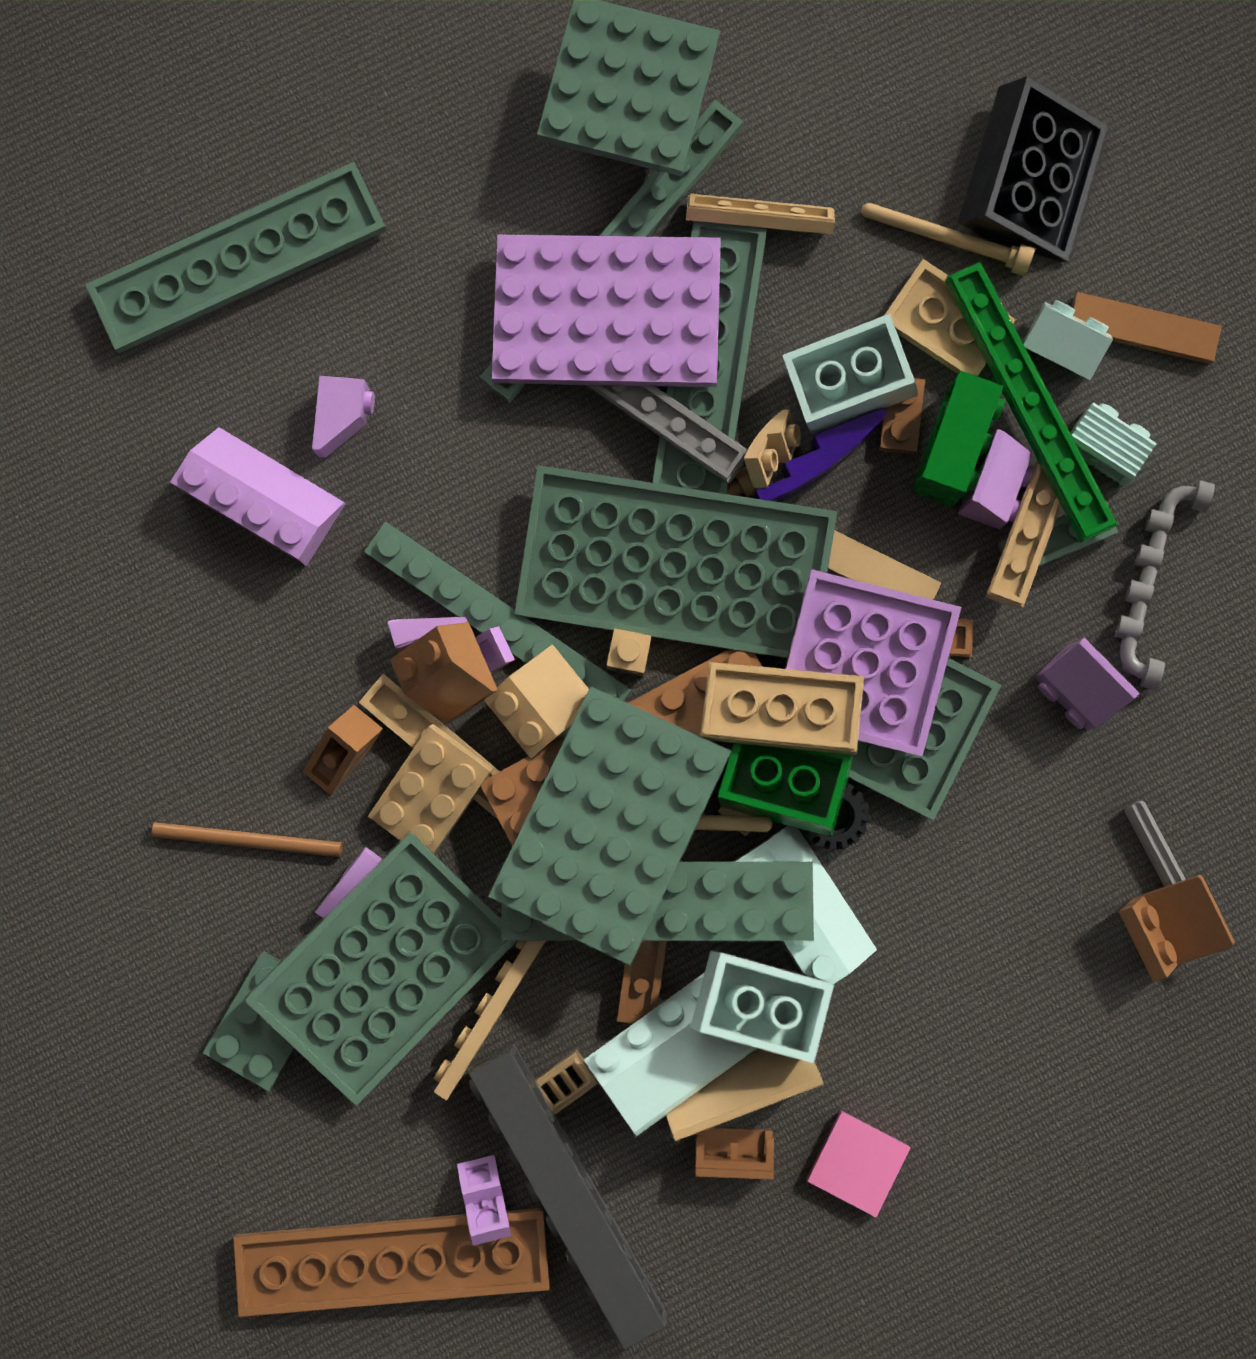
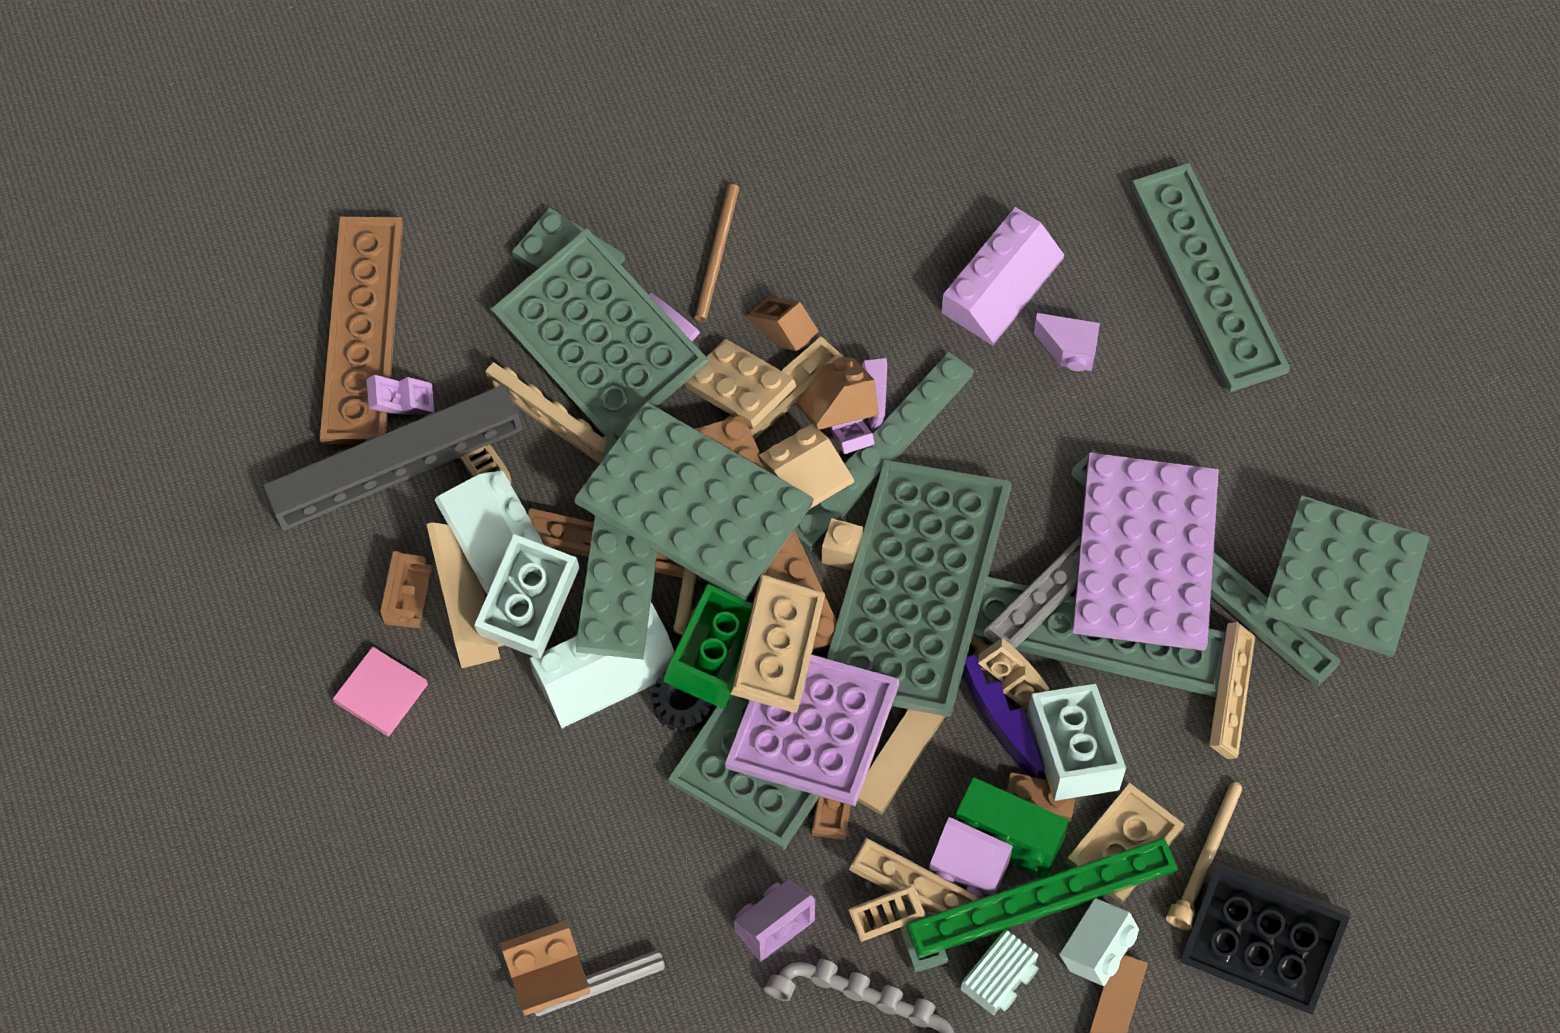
camera: 95 degrees right, 20 degrees down
(1081, 579) = (861, 922): none -> tan slope

